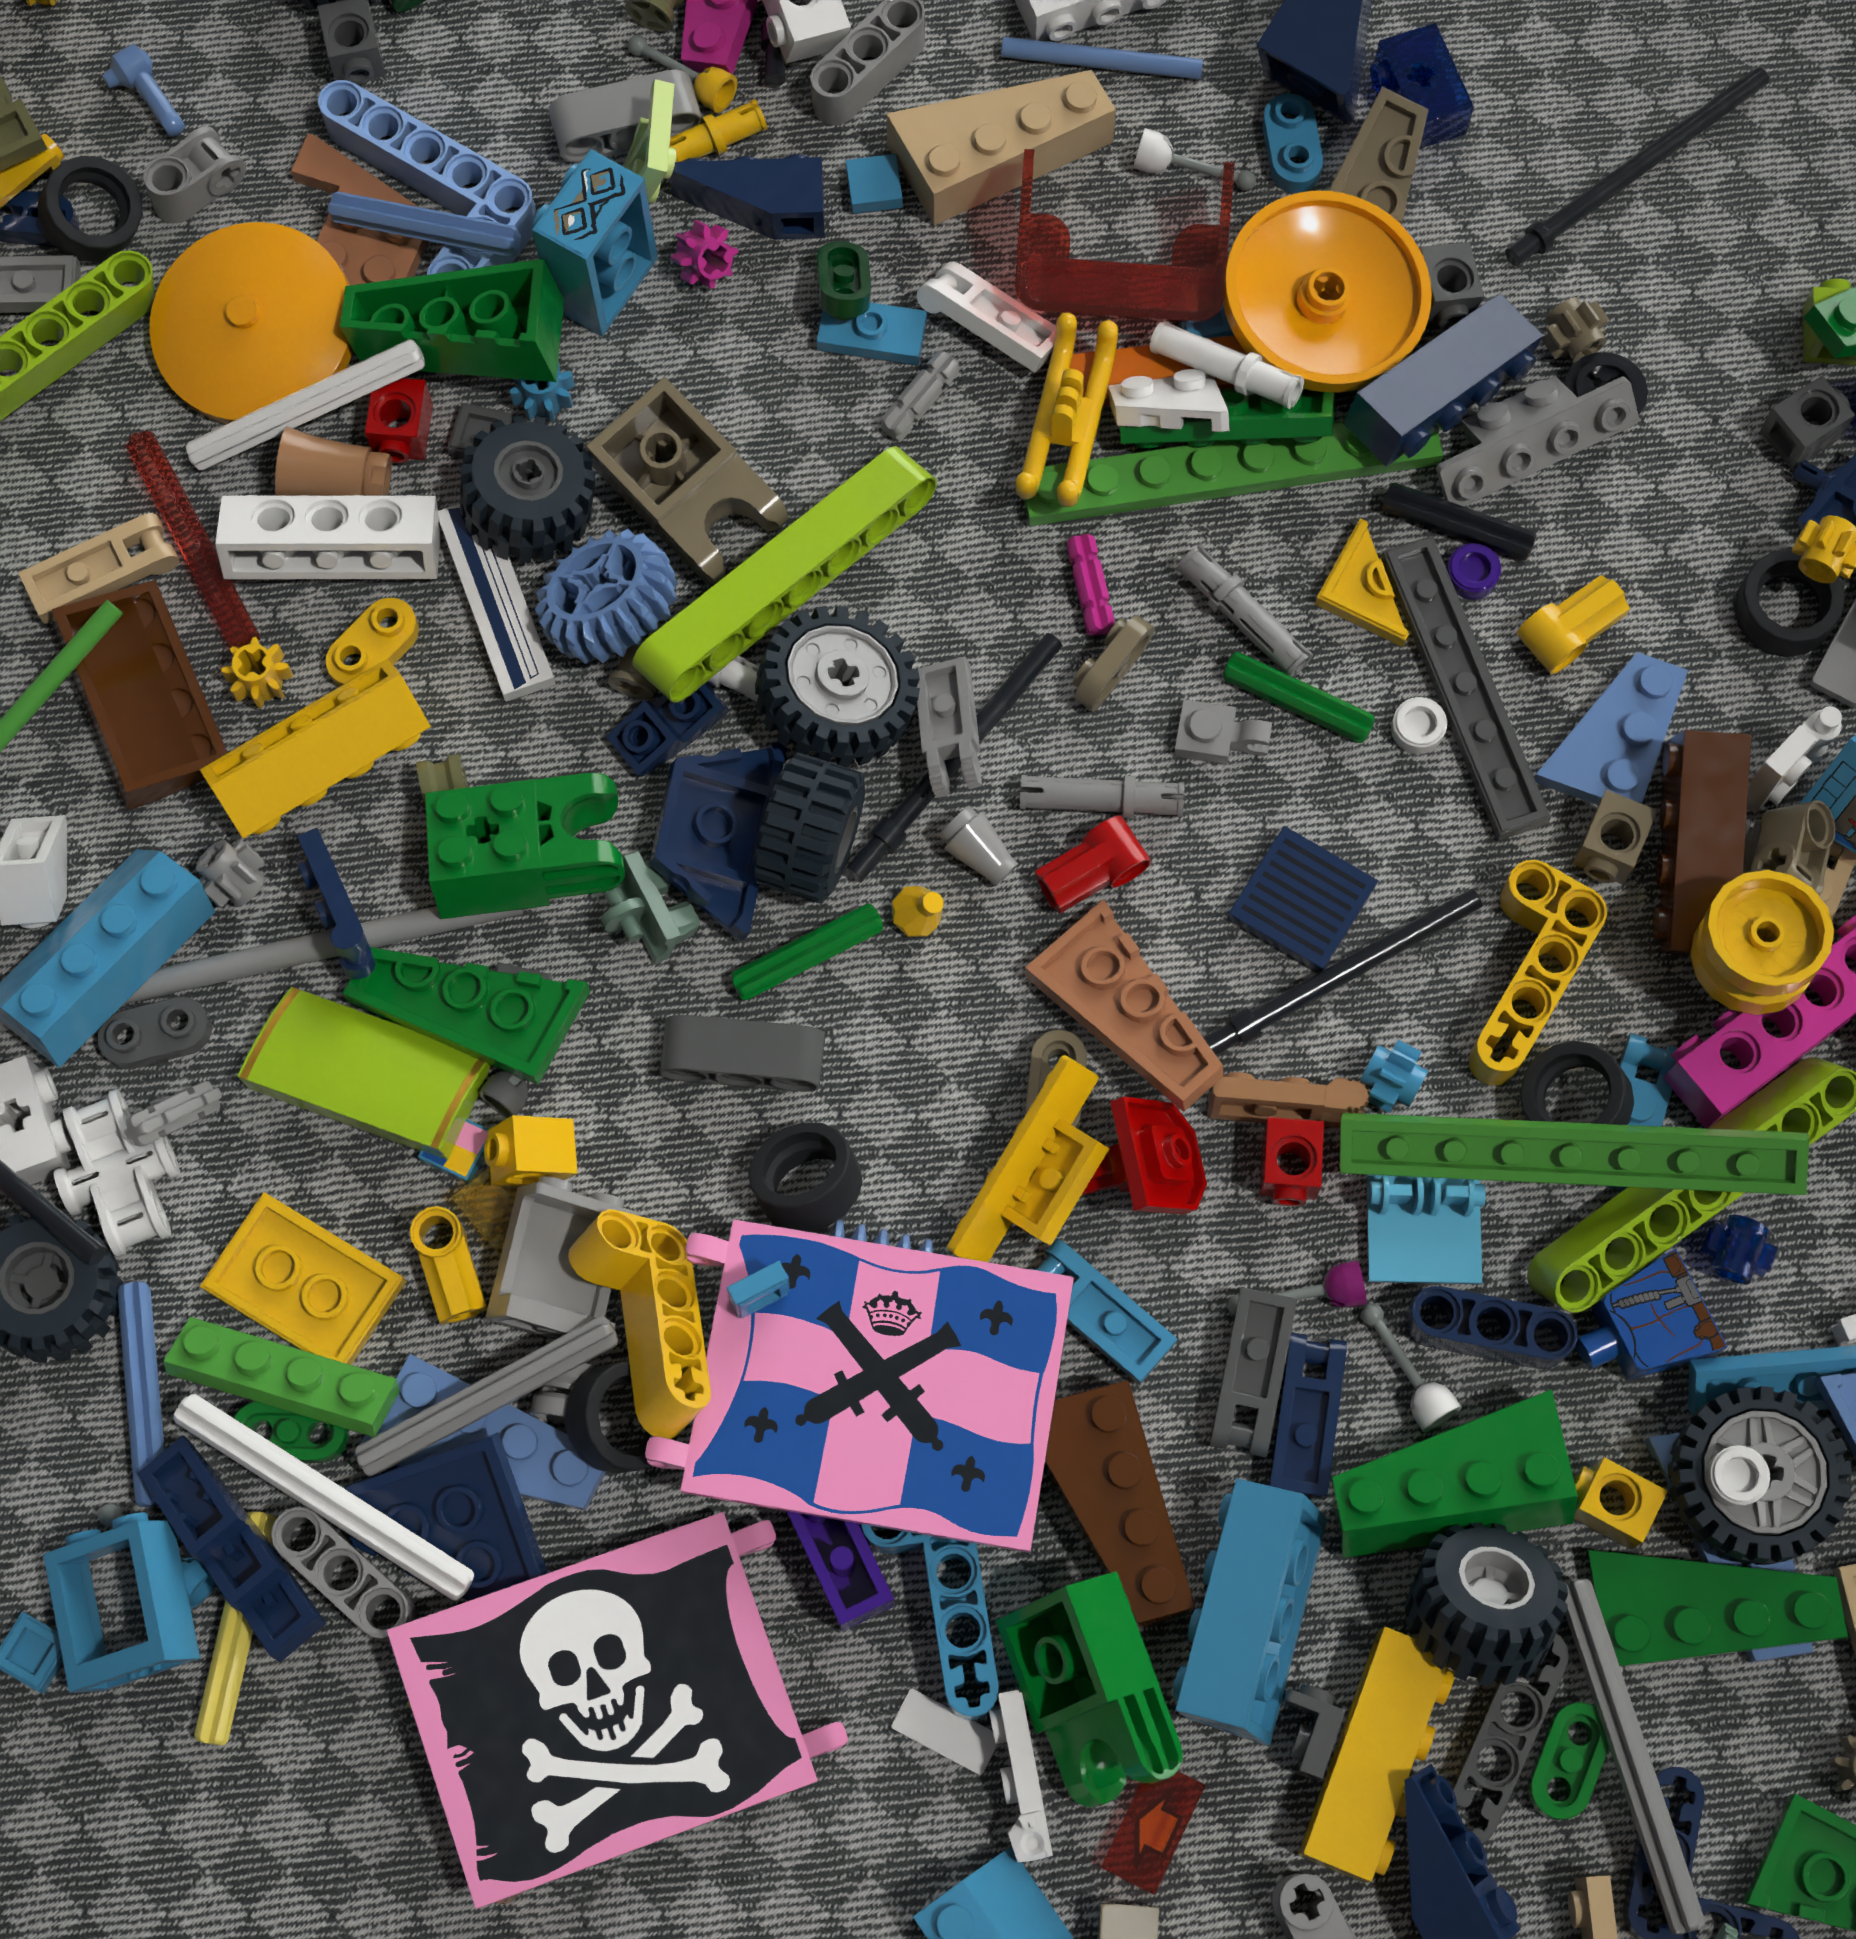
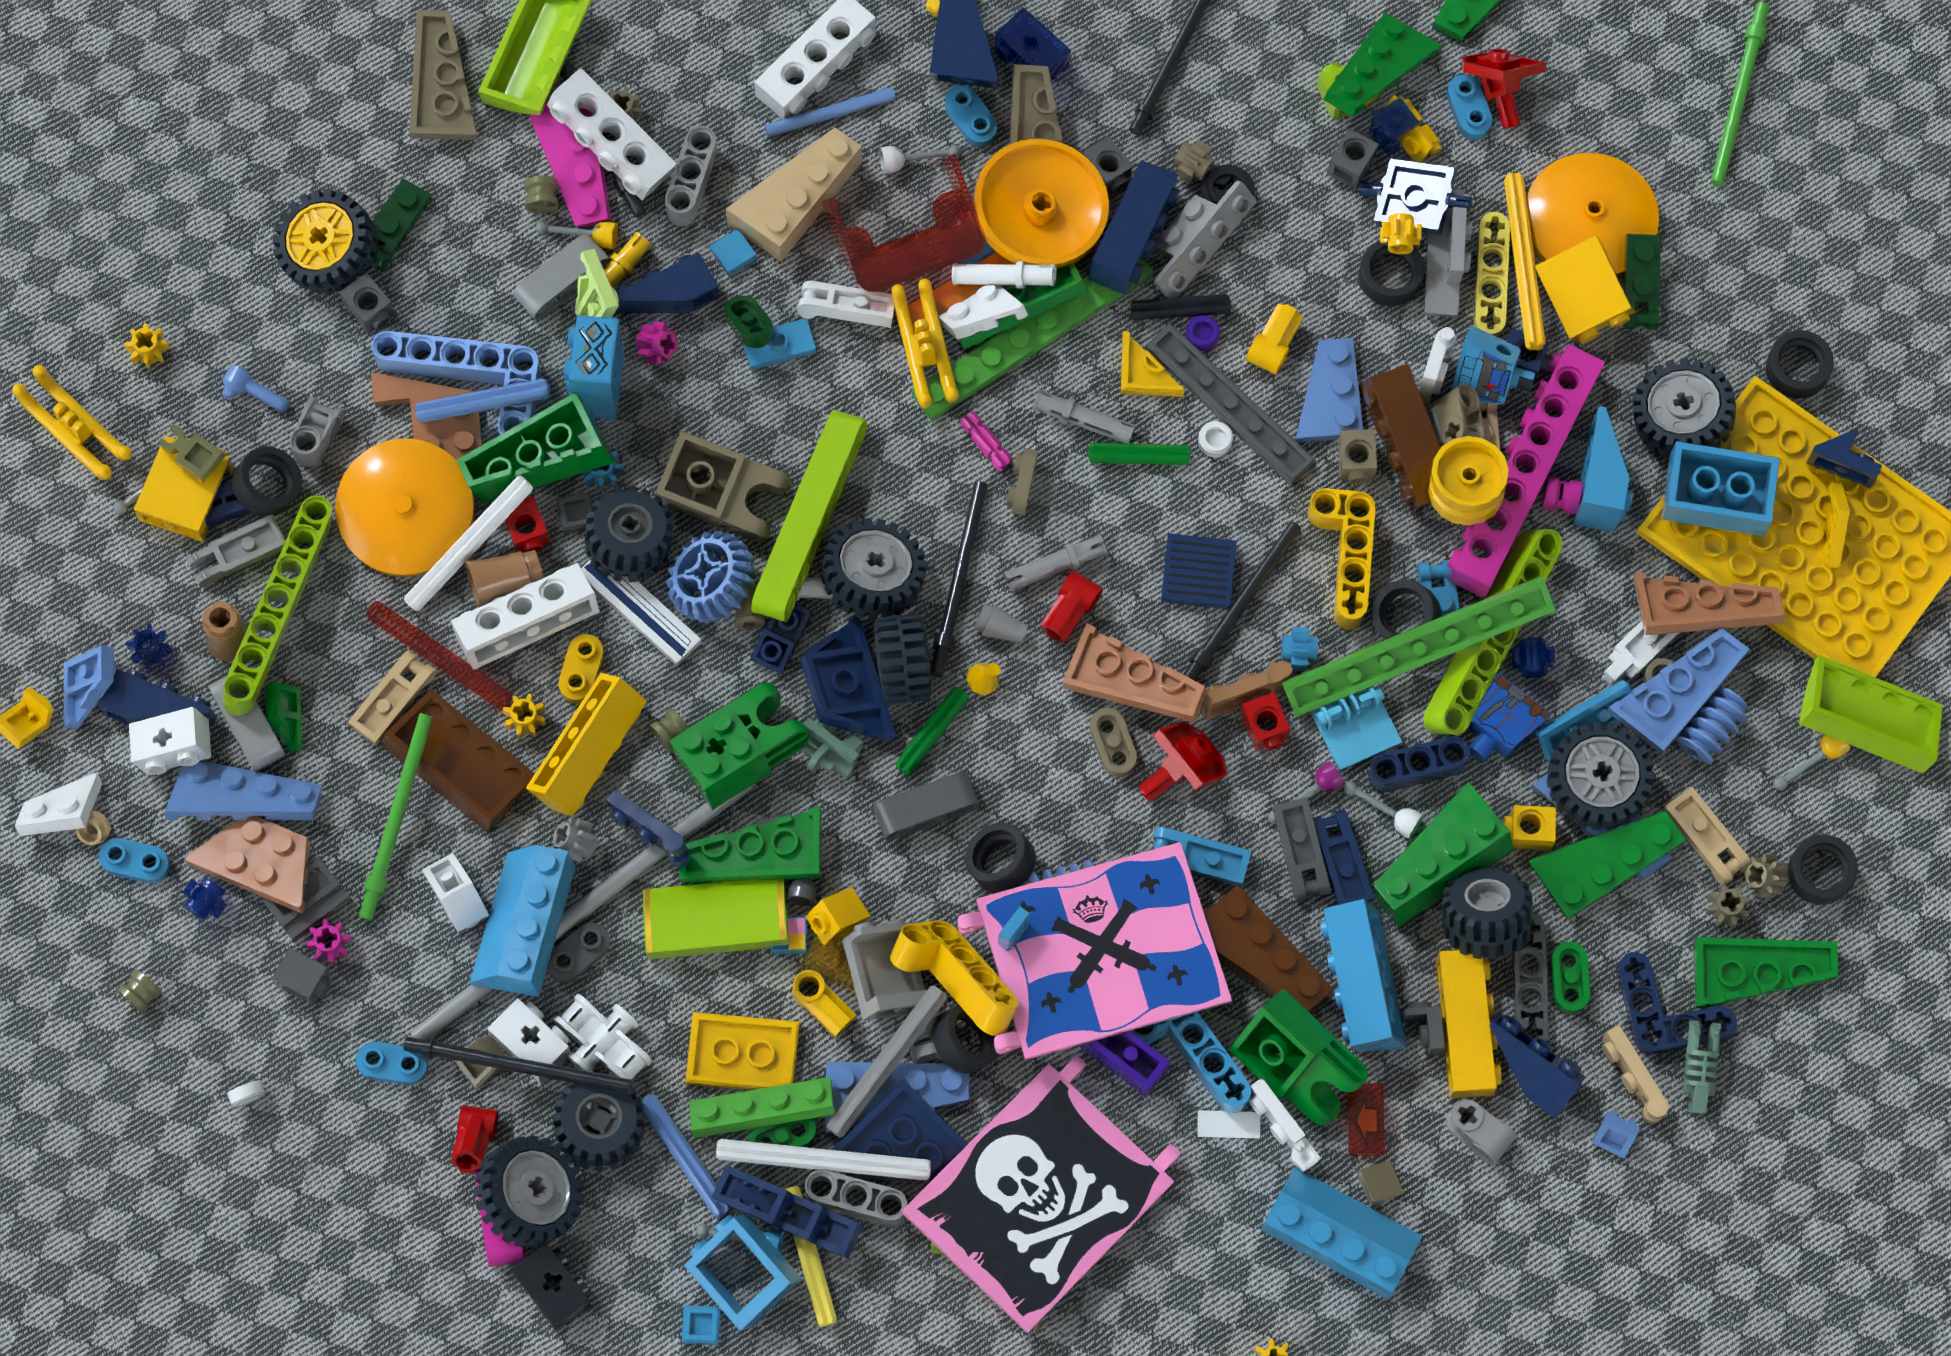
camera: 30 degrees left, 0 degrees up
(172, 1113) = (620, 991): light grey axle -> none
(919, 395) = (828, 371): light grey axle -> none
(948, 722) = (947, 560): light grey hinge -> none
(1038, 1171) = (1131, 793): yellow bracket -> none
(1210, 732) = (1099, 497): light grey plate -> none
(1632, 1759) = (1602, 959): light grey axle -> none
(1737, 1476) = (1589, 780): white tile -> none

